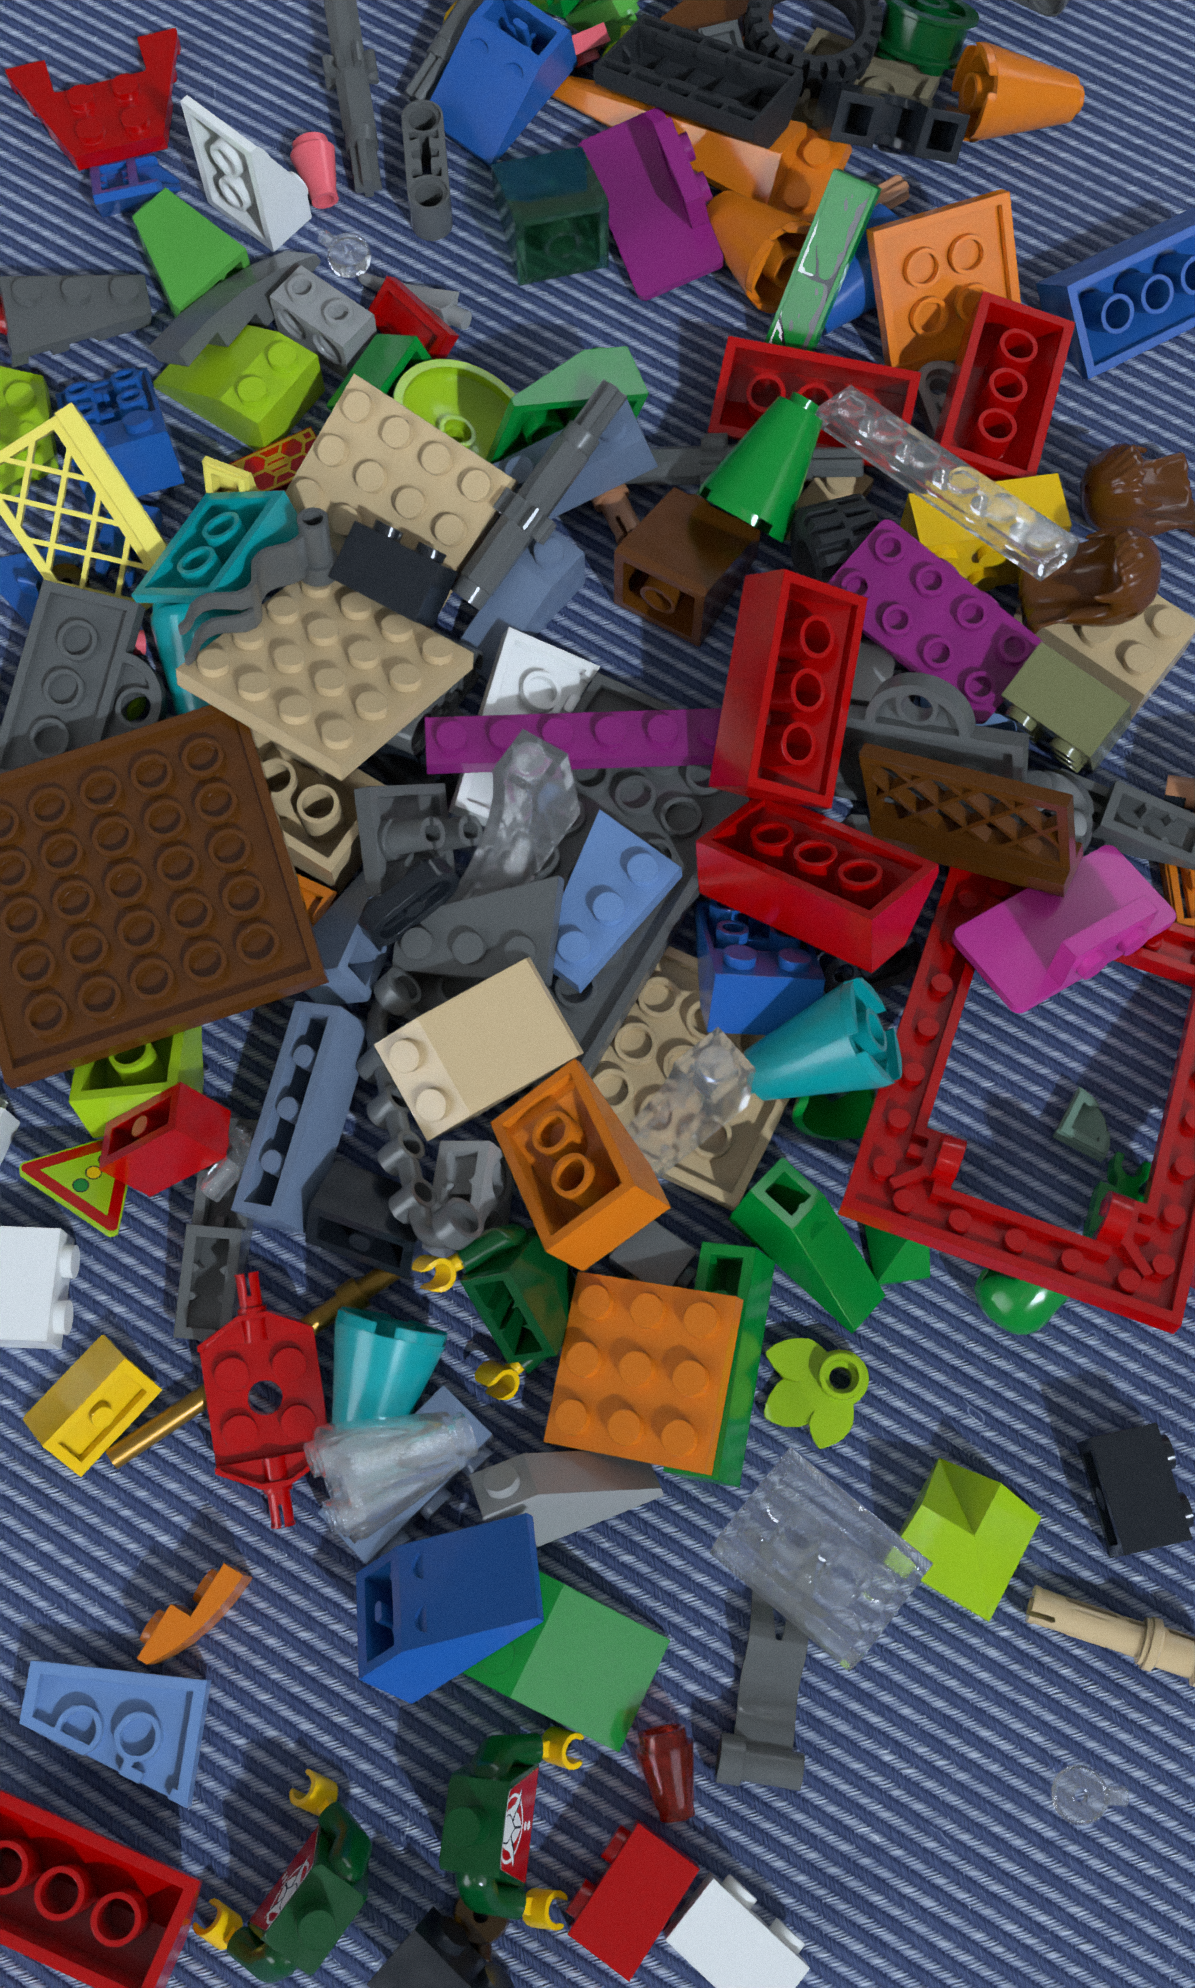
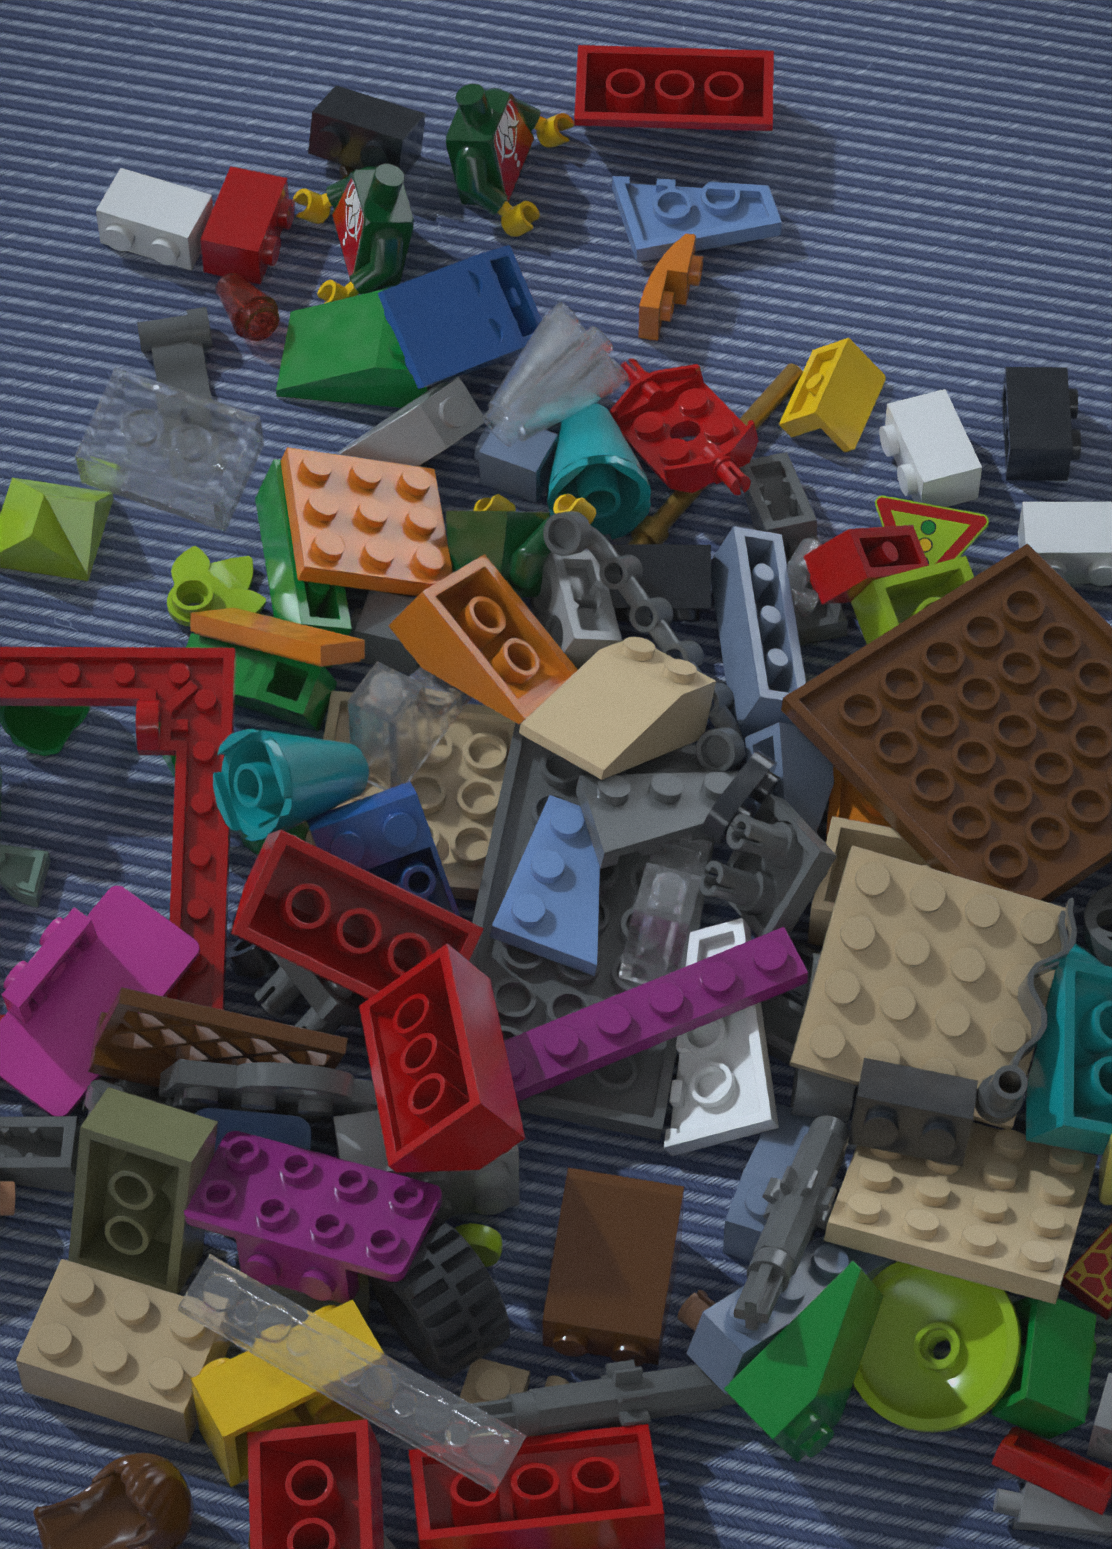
camera: 160 degrees right, 15 degrees down
(768, 467) = (560, 1334): green cone -> none
(785, 1237) = (278, 636): none -> orange tile
(1101, 586) = (134, 1314): reddish brown piece -> none

